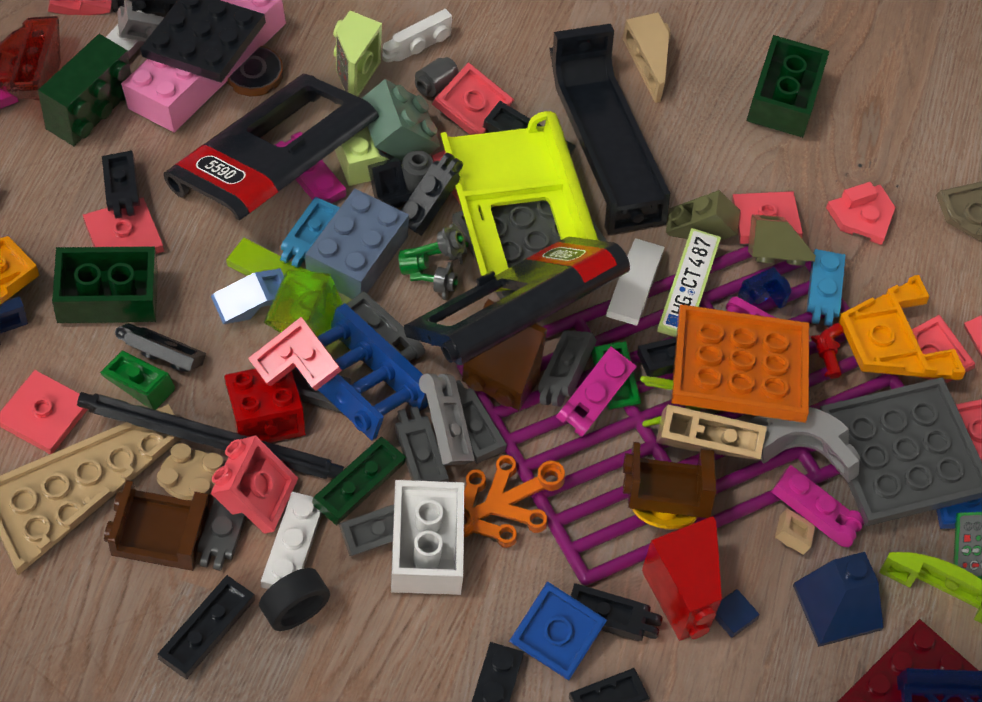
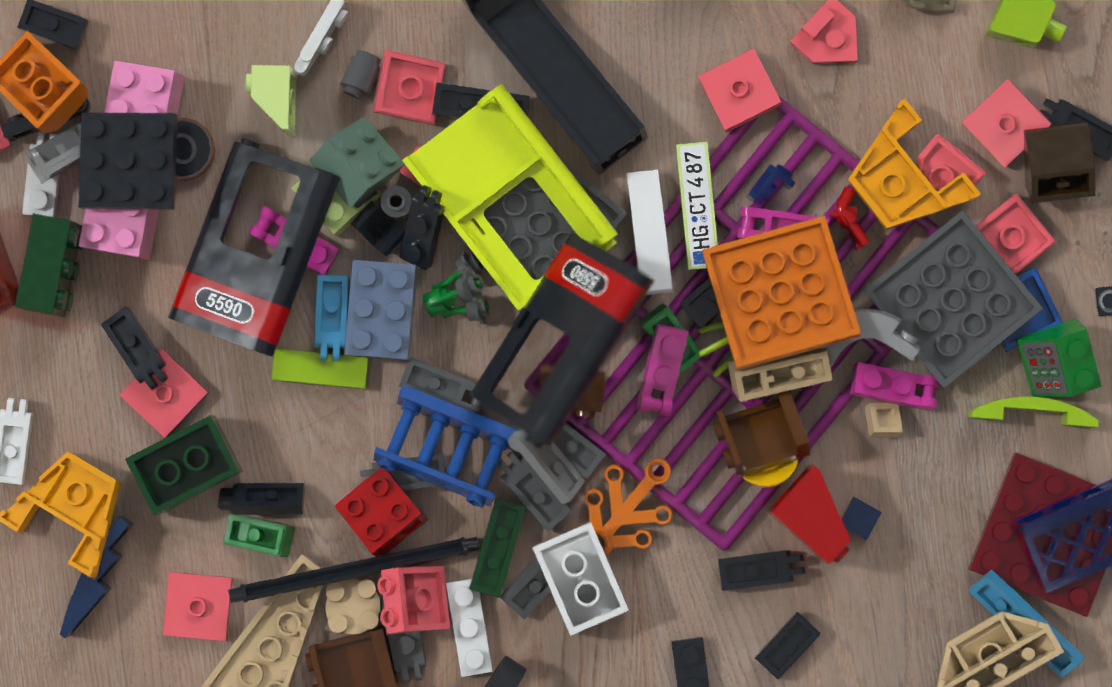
camera: 10 degrees left, 30 degrees up
(247, 295) = (316, 411): slope -> none
(297, 348) = (395, 468): plate -> none
(305, 296) = (367, 404): clear neon green slope -> none
(558, 630) = (723, 609): blue plate -> none
(566, 366) = (626, 362): dark grey hinge -> none
(708, 213) = (682, 123): olive slope -> none
(776, 239) = (763, 125): olive slope -> none
(825, 286) = (822, 147): dark azure hinge -> none
(841, 599) = (944, 467): dark blue slope -> none

